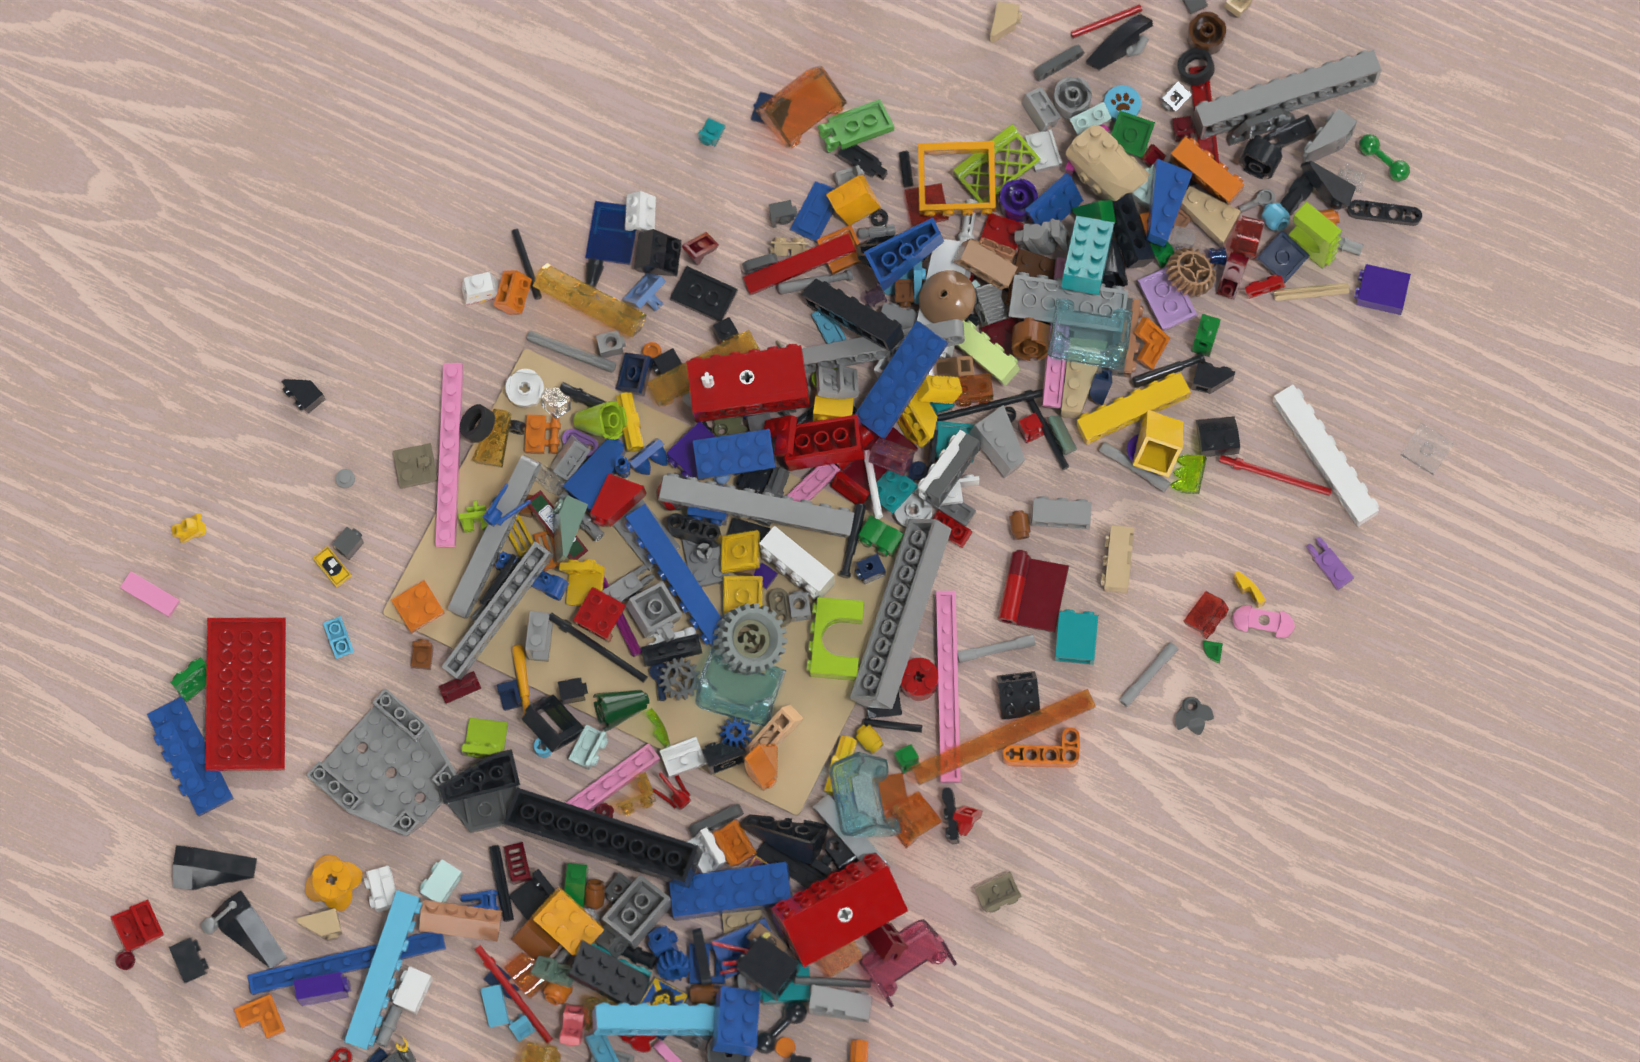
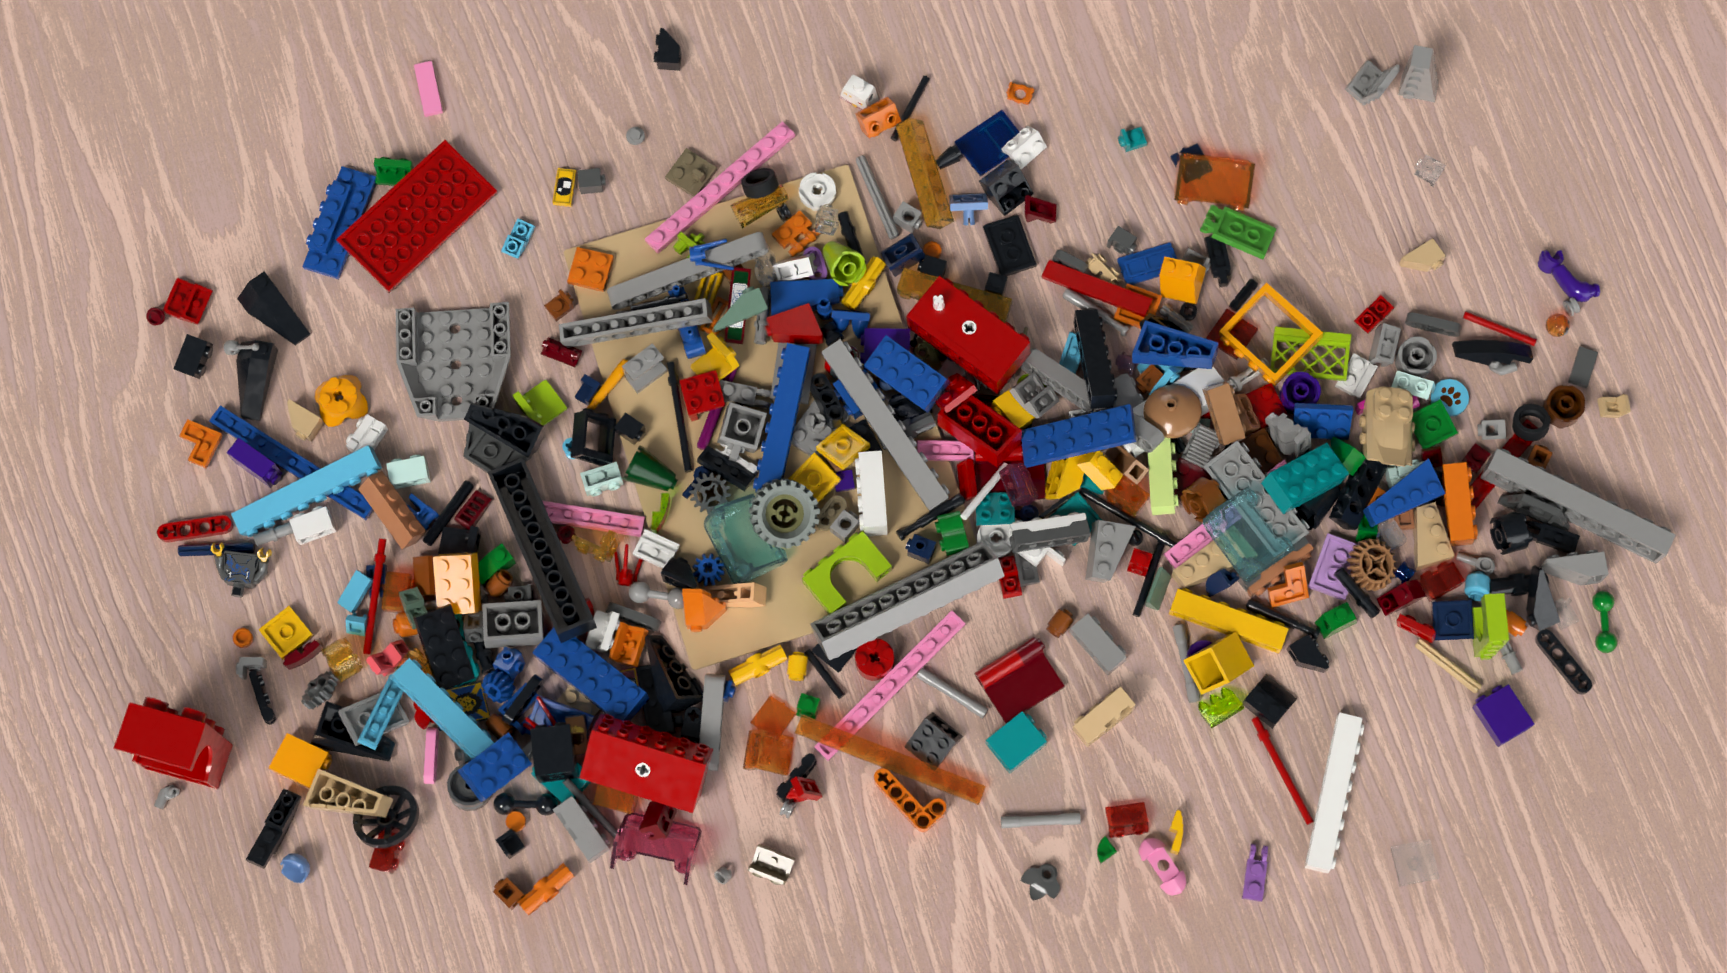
camera: 45 degrees right, 0 degrees up
(189, 528) = (498, 69): yellow hips -> none
(599, 169) = (1014, 87): none -> orange piece
(646, 480) = (831, 333): none -> black wheel
(703, 798) = (640, 592): none -> light grey piece
(859, 797) = (744, 700): clear light blue windscreen -> none
(967, 843) = (787, 808): none -> light grey bush
(971, 934) = (723, 875): none -> light grey hinge
(1010, 94) = (1374, 314): none -> red slope
(1207, 302) = (1362, 598): none -> black pin
(1226, 81) = (1541, 453): none -> dark orange brick

